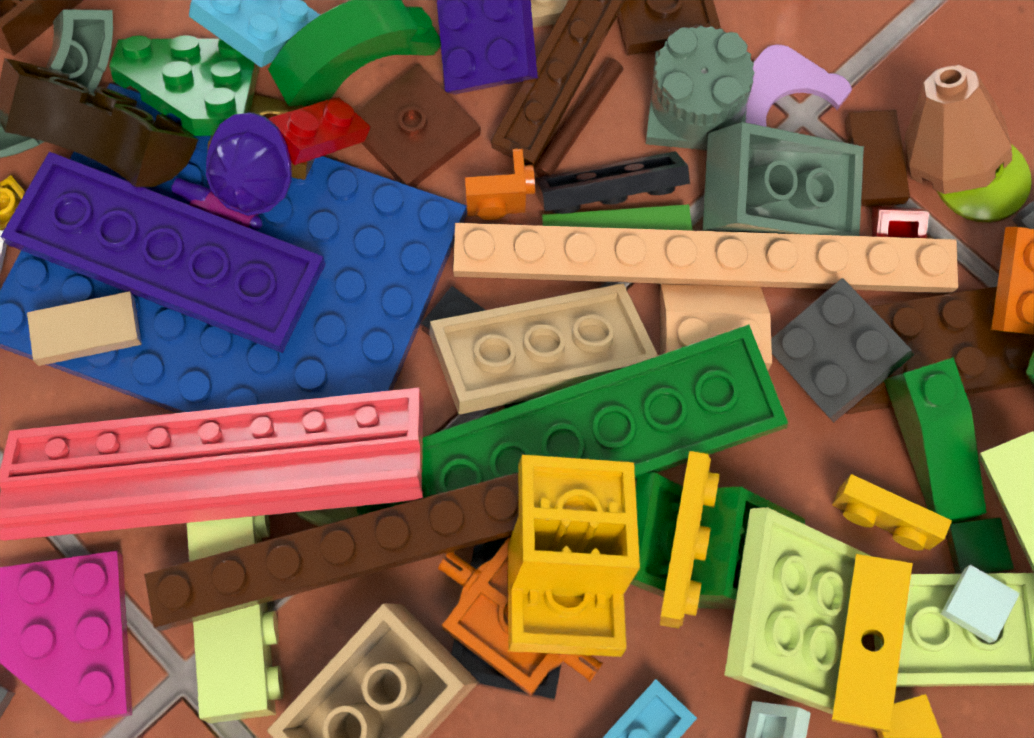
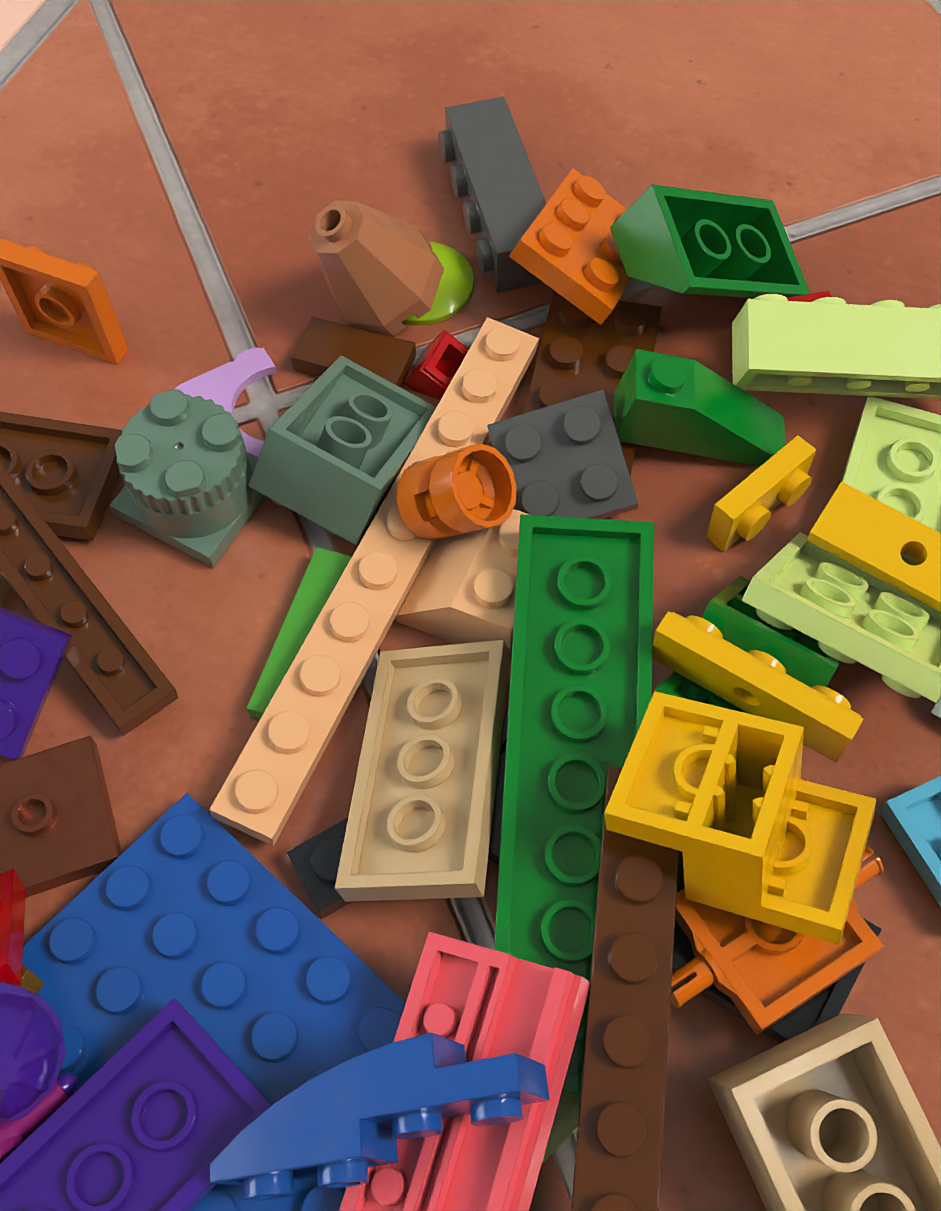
camera: 65 degrees left, 10 degrees down
(294, 395) = (361, 1107): none -> blue slope
(500, 194) = (197, 744): orange bracket -> none
(578, 118) = (143, 624): copper bar -> none
(612, 182) = (245, 617): black plate -> none
(759, 277) = (457, 492): none -> orange wheel
(980, 545) = (827, 432): dark green tile -> none
(980, 604) = (892, 449): light aqua tile -> none

